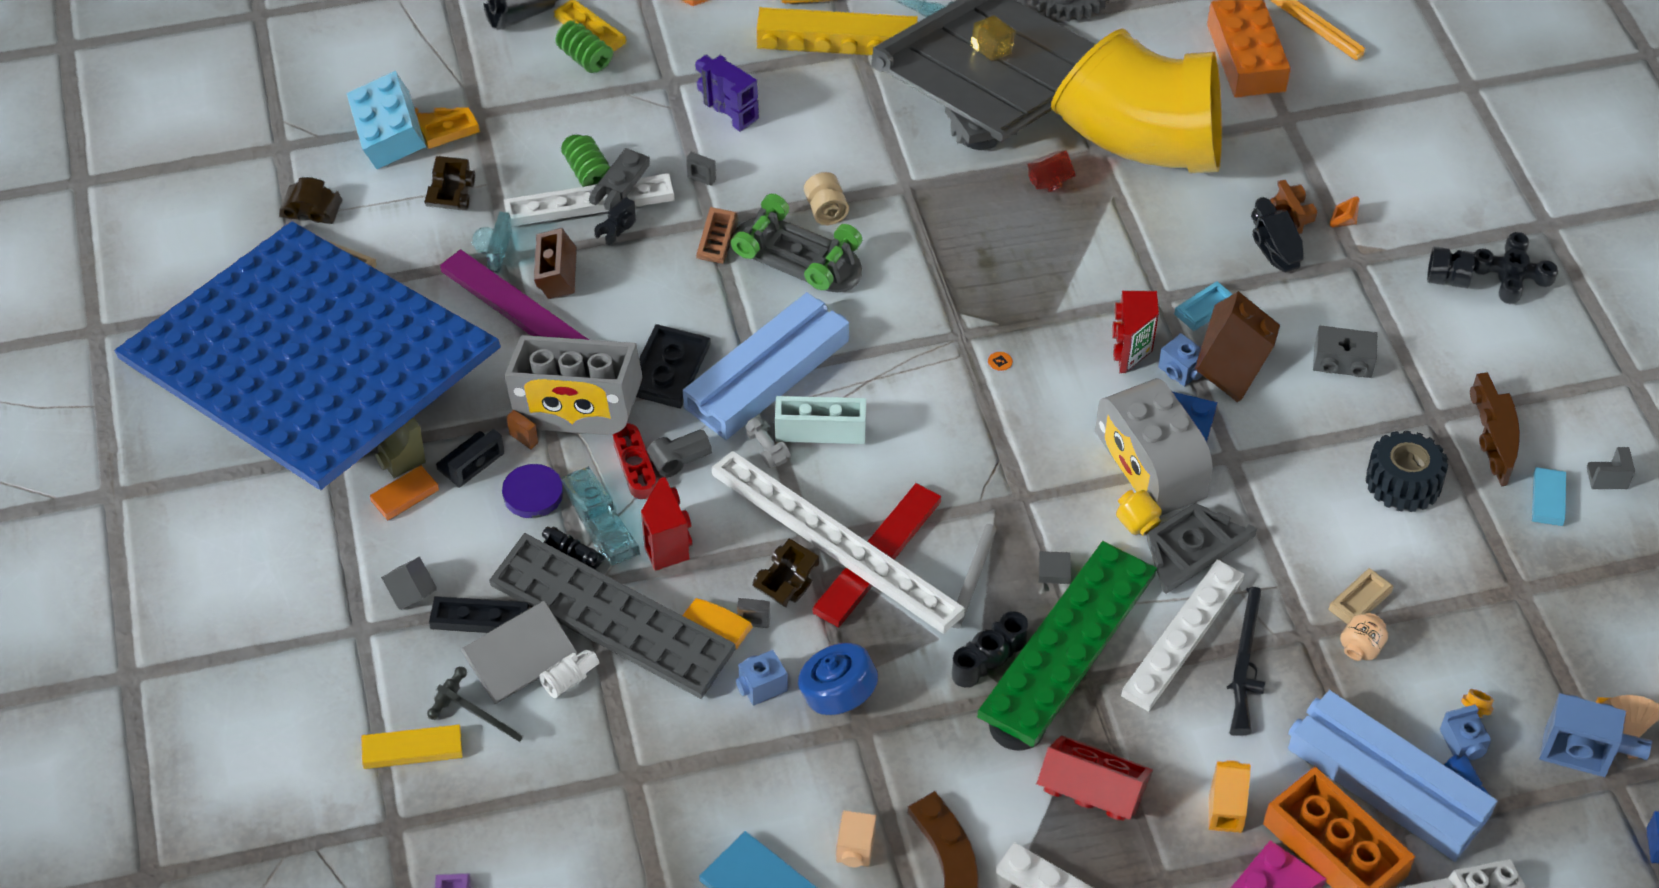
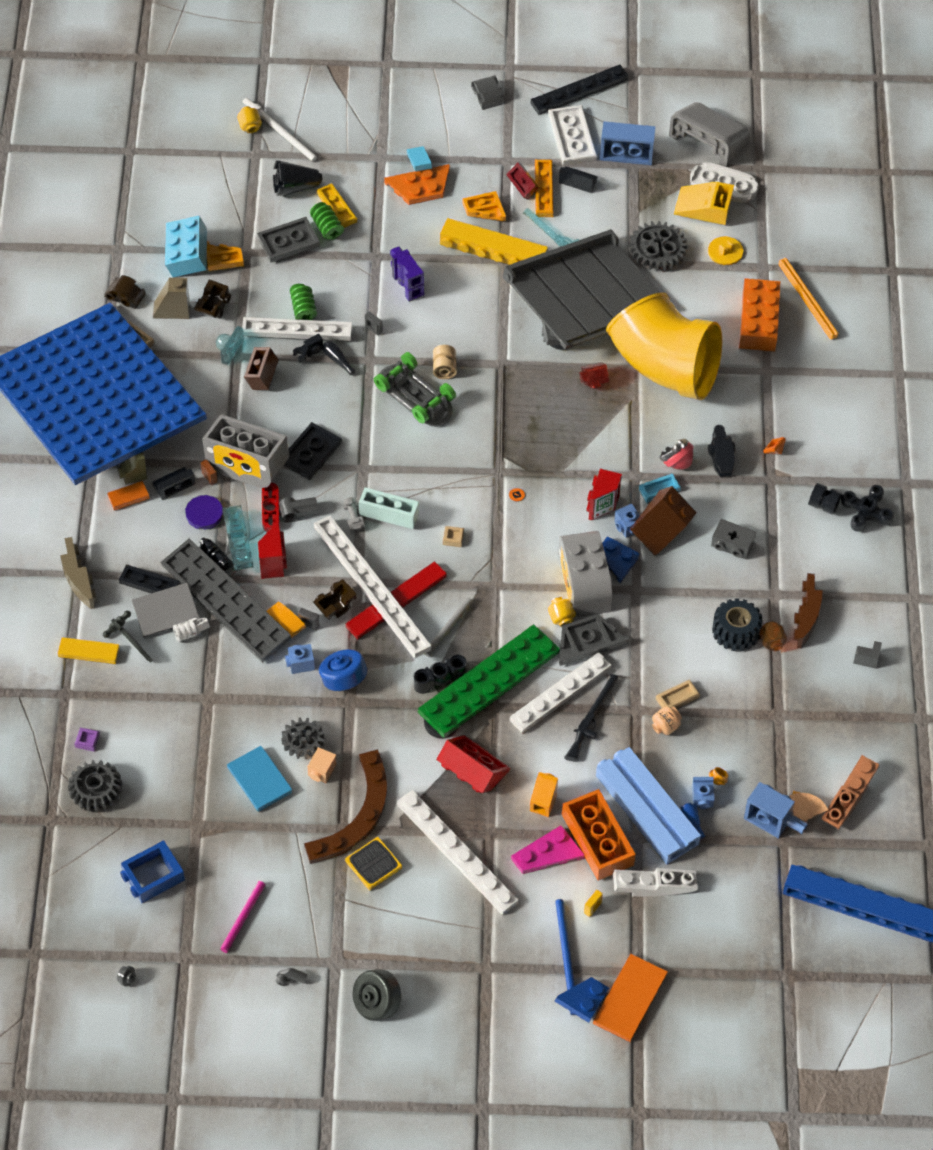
camera: 15 degrees right, 5 degrees up
(359, 633) = (77, 575): none -> dark tan slope
(389, 195) = (173, 300): none -> dark tan slope
(409, 583) = (114, 552): dark grey panel -> none
(505, 298) = (229, 388): magenta tile -> none
(534, 83) = (288, 239): none -> dark grey plate
(620, 178) = (319, 319): dark grey hinge -> none
(659, 223) = (335, 354): none -> black piece
(721, 217) = (371, 357): nougat slope -> none
(766, 365) = (370, 464): light blue brick -> none
(793, 809) = (313, 734): none -> dark grey gear
(929, 441) = (453, 536): none -> tan tile
(992, 38) = (587, 275): clear yellow brick -> none
(1054, 567) = (499, 633): dark grey tile -> none
(1218, 254) = (679, 456): none -> coral hair
(1289, 199) = (737, 433): dark orange hips -> none
(1465, 476) = (773, 636): none -> clear orange head
(1549, 496) = (822, 661): medium azure tile -> none

